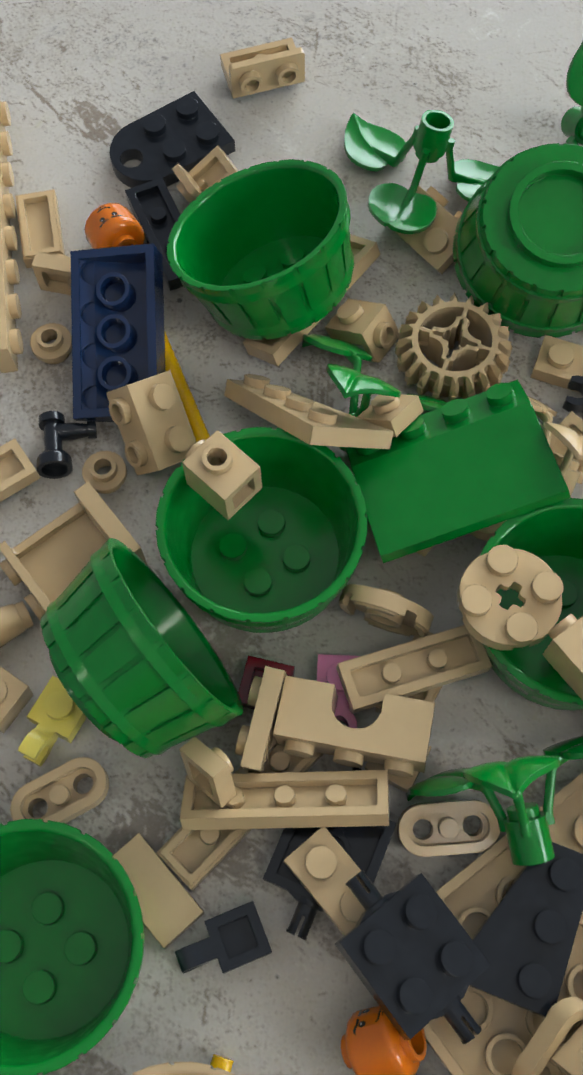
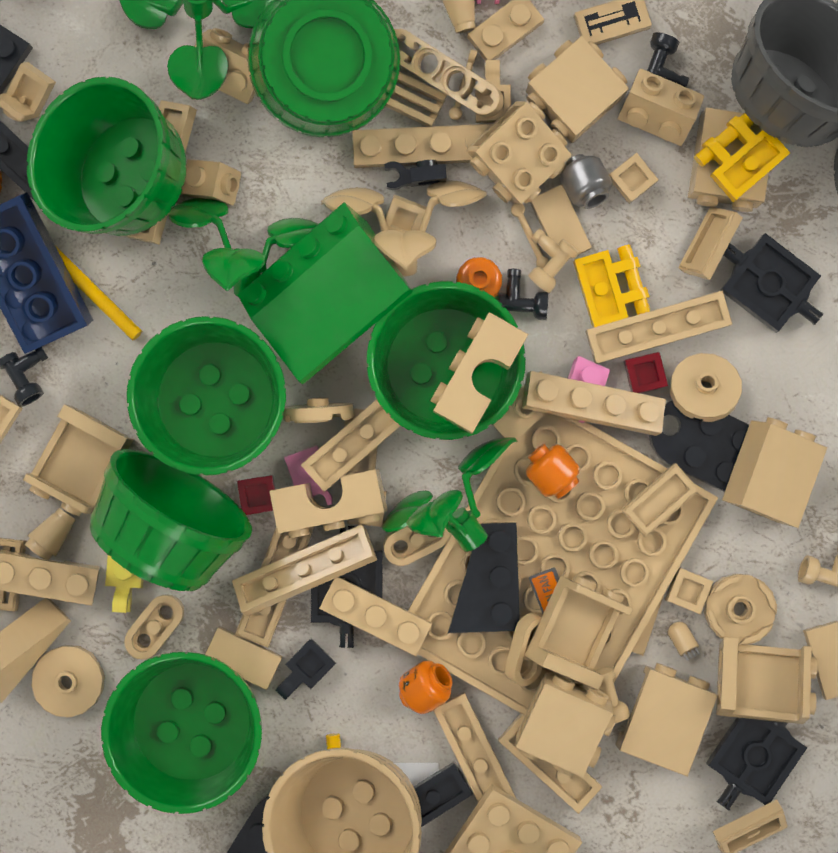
camera: 30 degrees left, 20 degrees up
(107, 482) = (78, 389): tan plate -> none
(152, 423) = (88, 336): tan bracket -> none
(209, 770) = (247, 575): tan plate -> none
(222, 474) = (163, 377): tan brick -> none
(256, 739) = (266, 540): tan plate -> none
(305, 418) = (197, 294): tan wing -> none
(393, 412) = (269, 272): tan plate -> none
(413, 956) = (421, 632): black plate -> none
(434, 331) = (271, 174): tan gear -> none
(518, 626) = (414, 371): tan plate -> none

